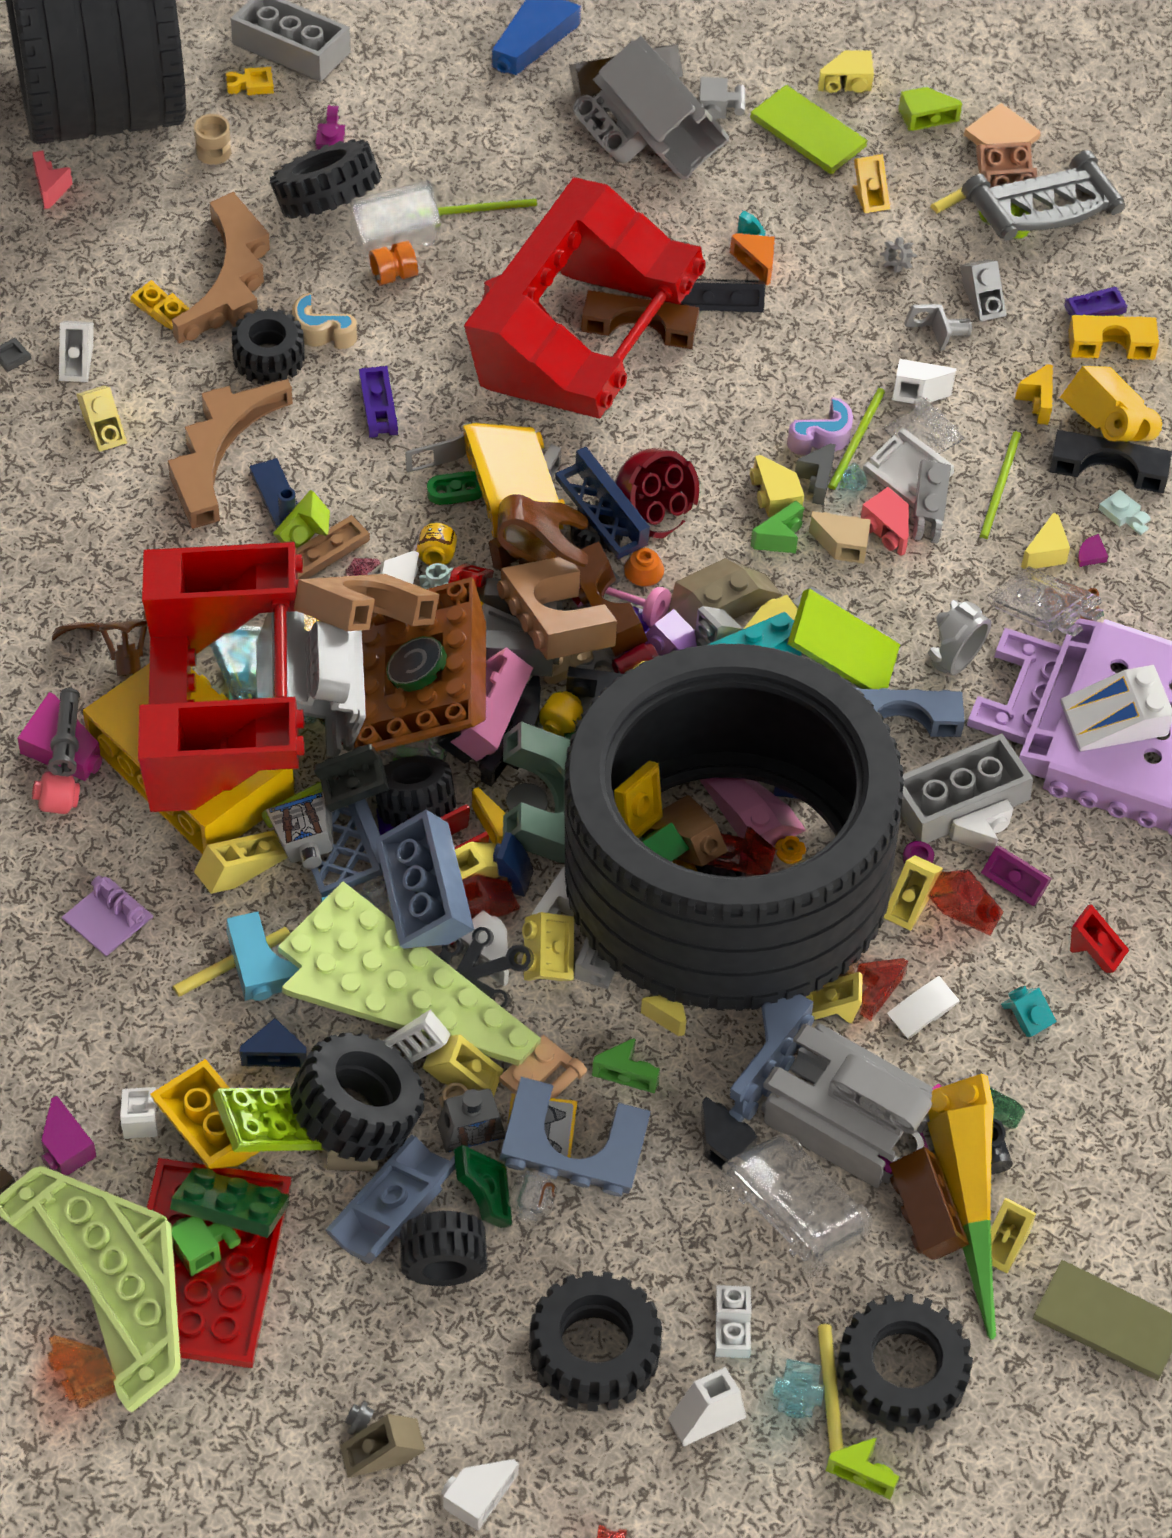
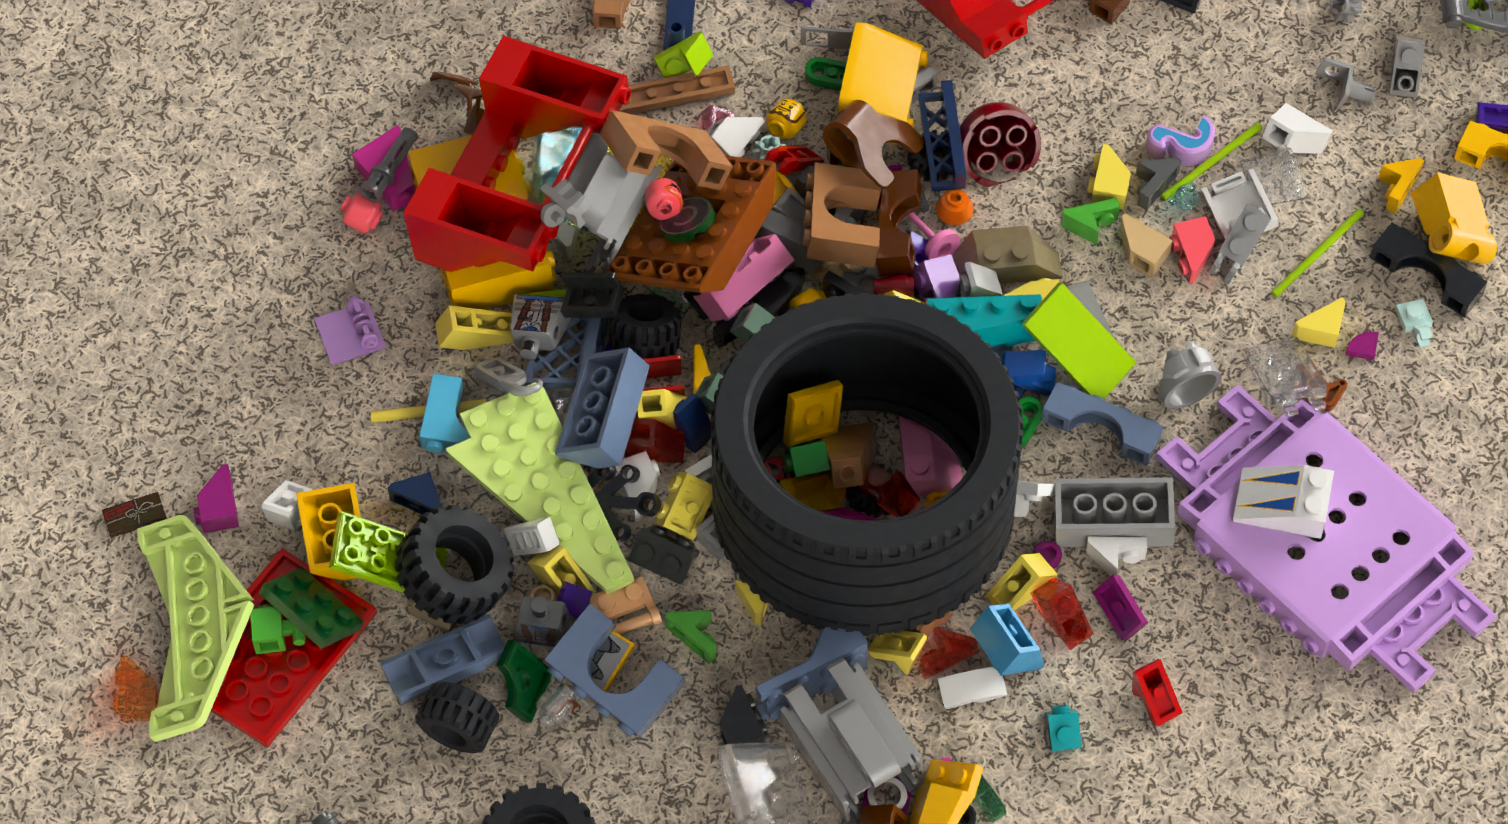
camera: 30 degrees right, 5 degrees up
(301, 893) = (505, 376): none -> light grey plate
(305, 690) = (564, 203): none -> light grey hips
(383, 652) = (663, 199): none -> coral head
(491, 1079) = (574, 597): none -> dark purple tile
(552, 1005) = (663, 554): none -> pearl dark grey bracket
(936, 947) = (1006, 641): none -> dark azure slope

